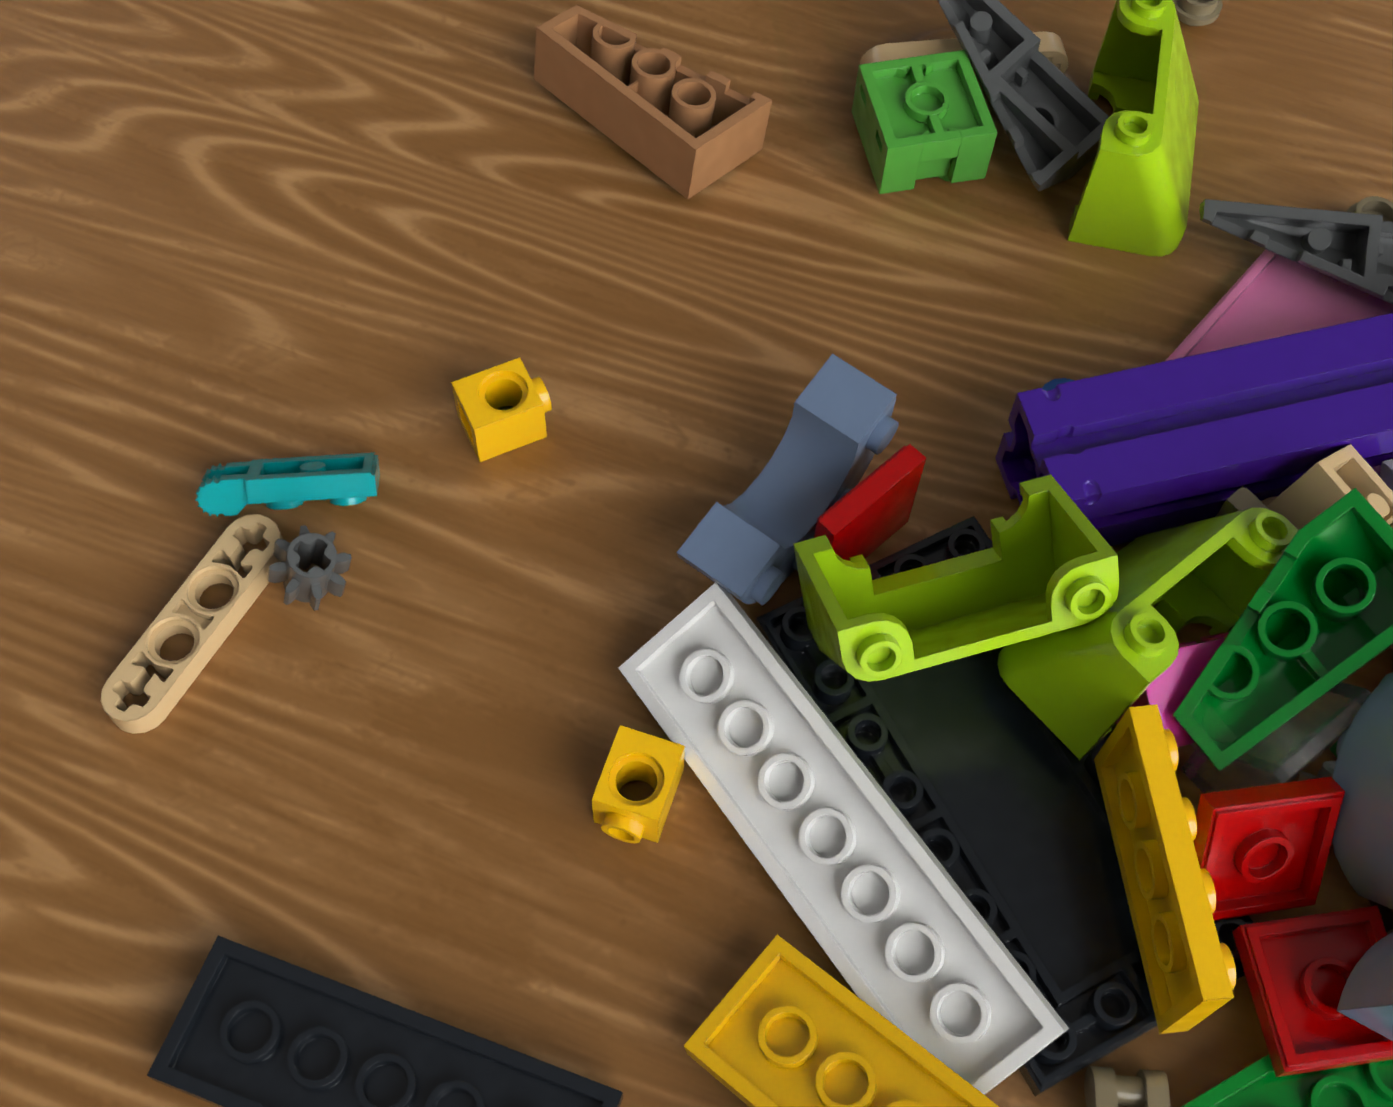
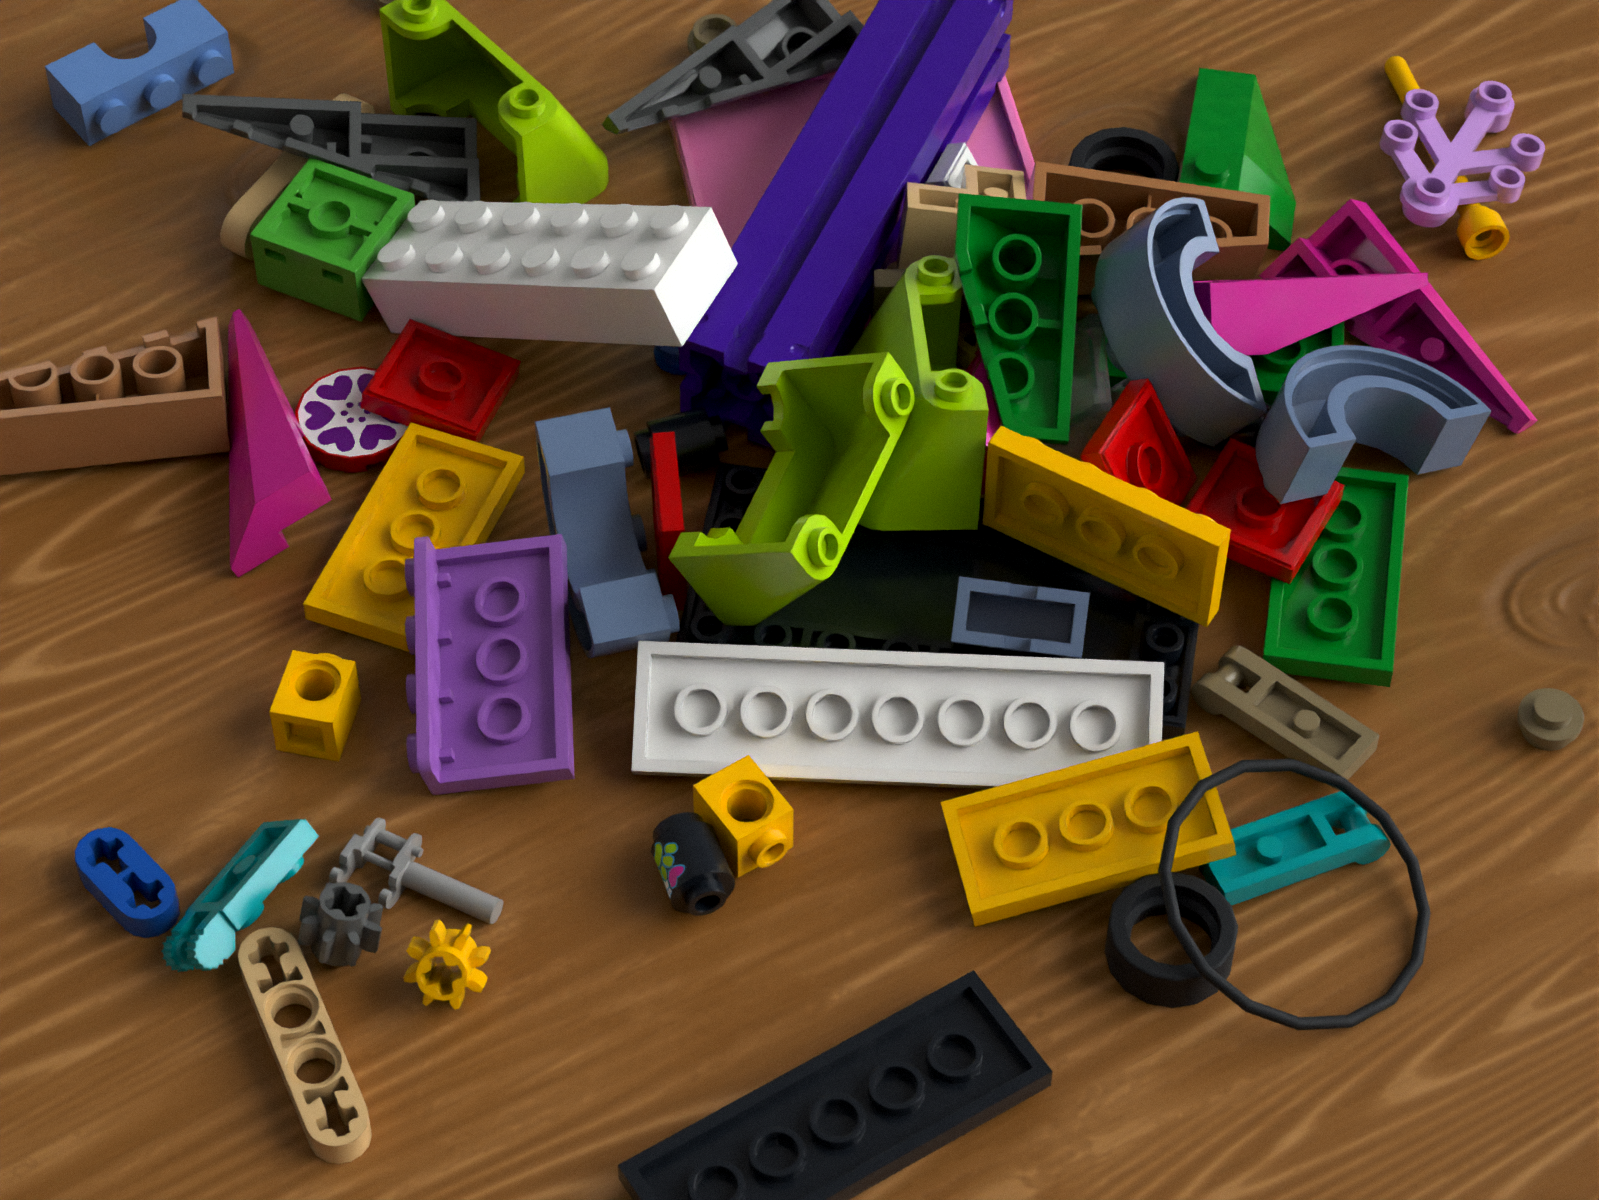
camera: 50 degrees left, 10 degrees down
(246, 402) = (137, 873): none -> blue beam
(324, 668) = (438, 980): none -> yellow gear
(403, 582) = (411, 874): none -> light grey piece
(560, 779) = (692, 864): none -> black brick
(621, 492) = (490, 664): none -> medium lavender bracket
(678, 234) = (269, 464): none -> dark pink wedge
(706, 364) = (427, 488): none -> yellow plate
(789, 253) = (338, 429): none -> tile
(864, 280) = (440, 382): none -> red tile
(964, 476) = (696, 437): none -> black brick
(1004, 866) = (1020, 618): none -> sand blue brick
(1013, 272) = (553, 271): none -> white brick

